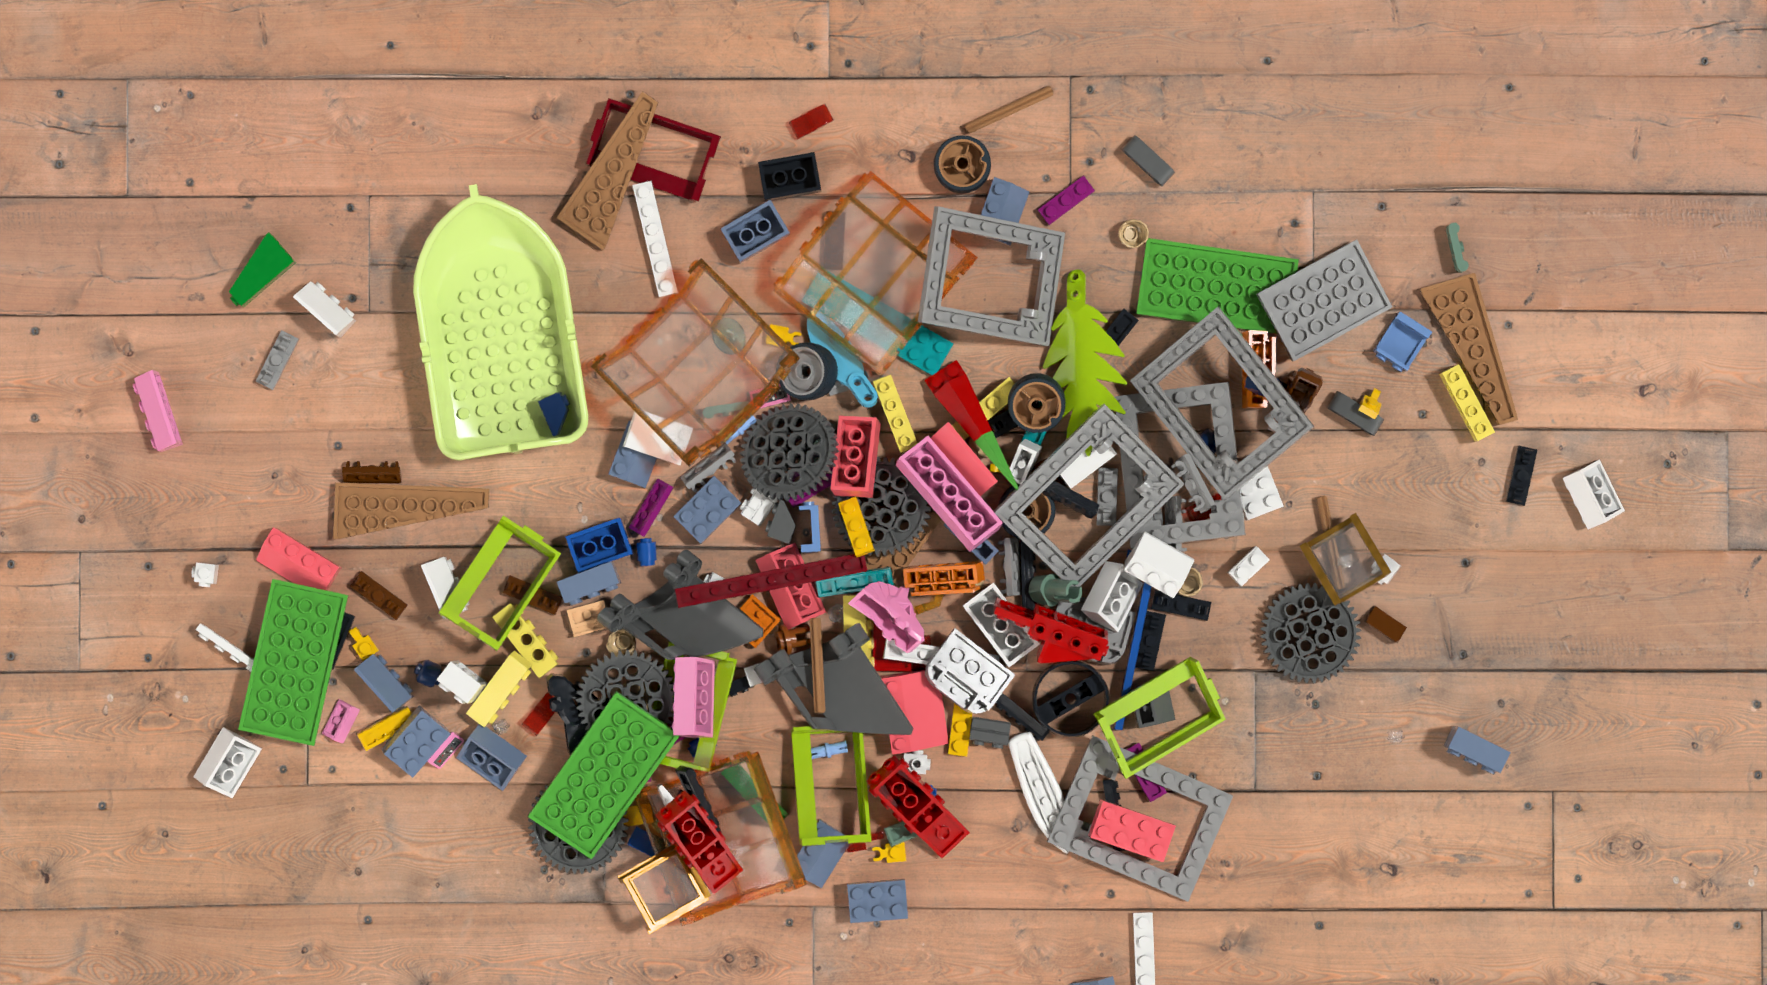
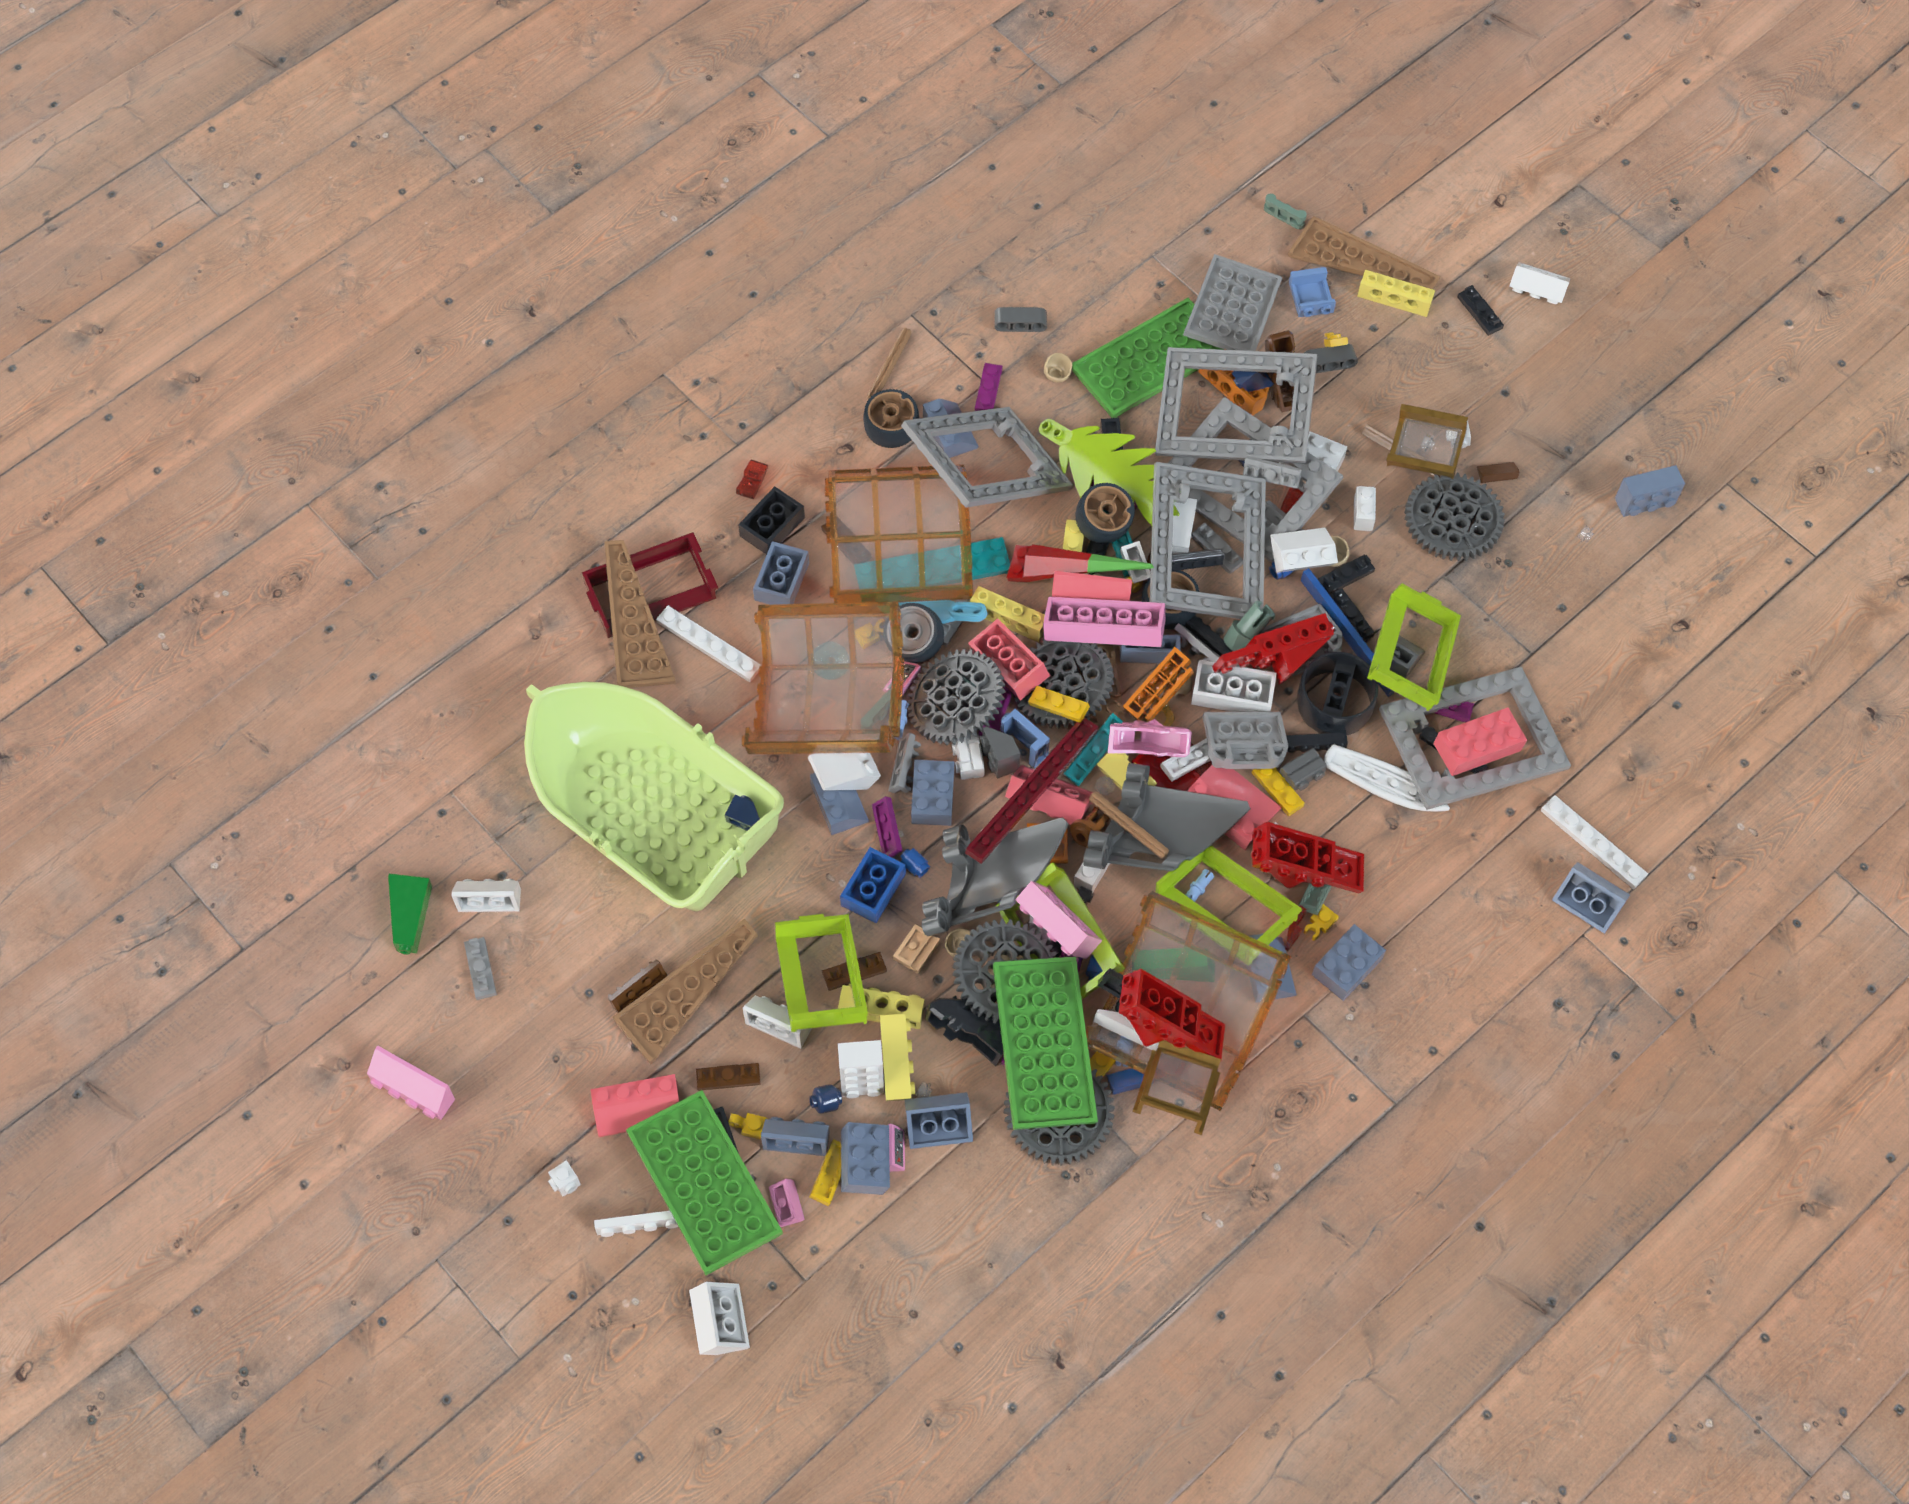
camera: 40 degrees left, 25 degrees down
(539, 716) = (947, 1056): clear red slope -> none
(589, 583) = (891, 917): sand blue brick -> none
(1112, 596) = (1289, 599): white slope -> none

